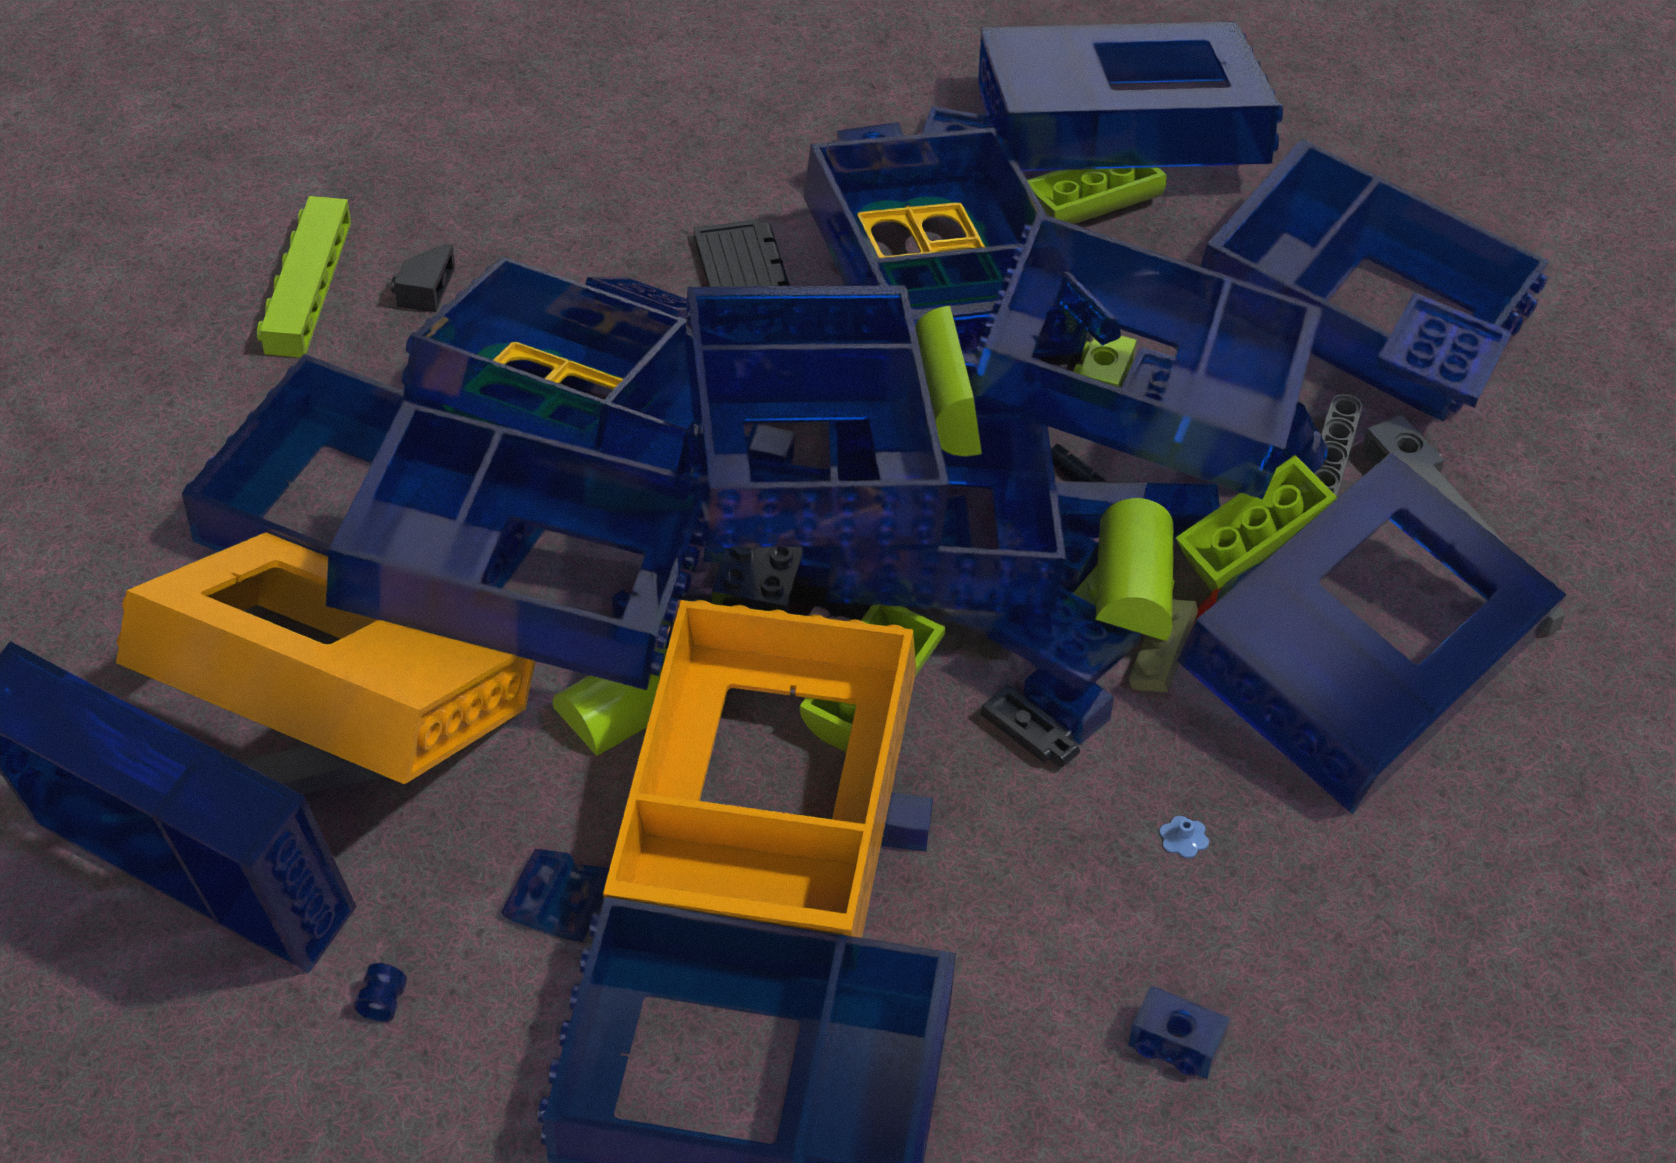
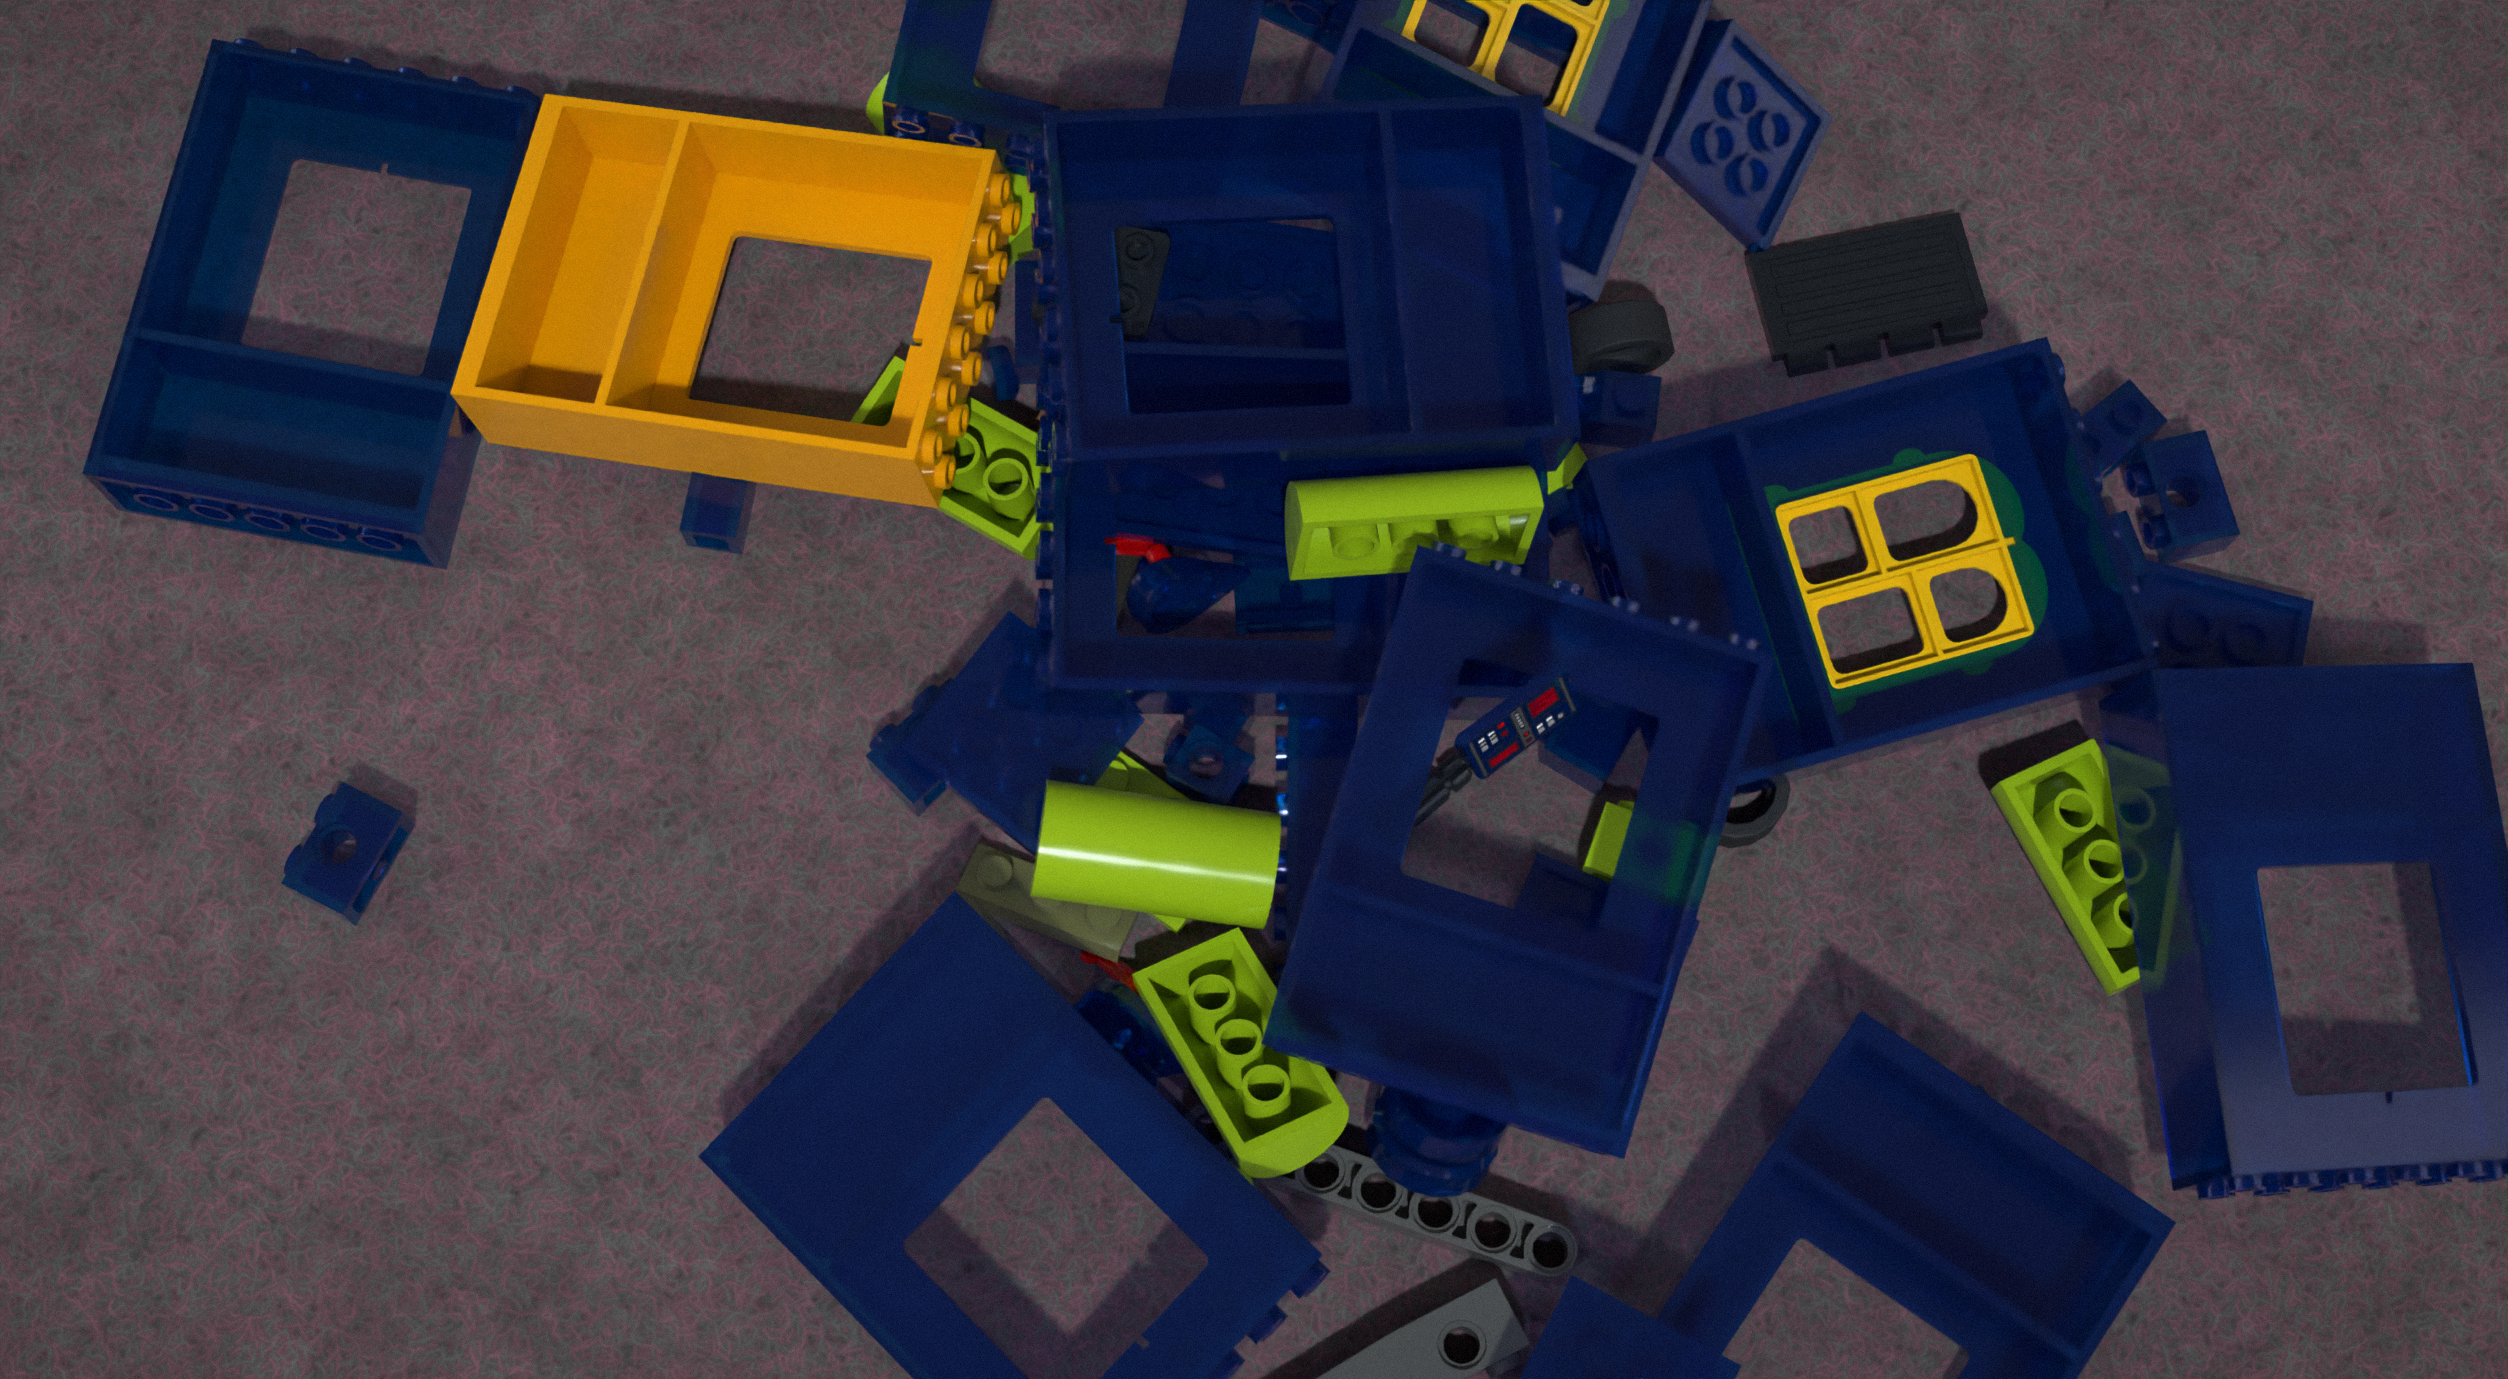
camera: 90 degrees right, 25 degrees up
(557, 895) = (631, 63): clear blue slope -> none
(1030, 727) = (887, 691): black hinge -> none
(1184, 837) = (705, 913): medium blue plant -> none

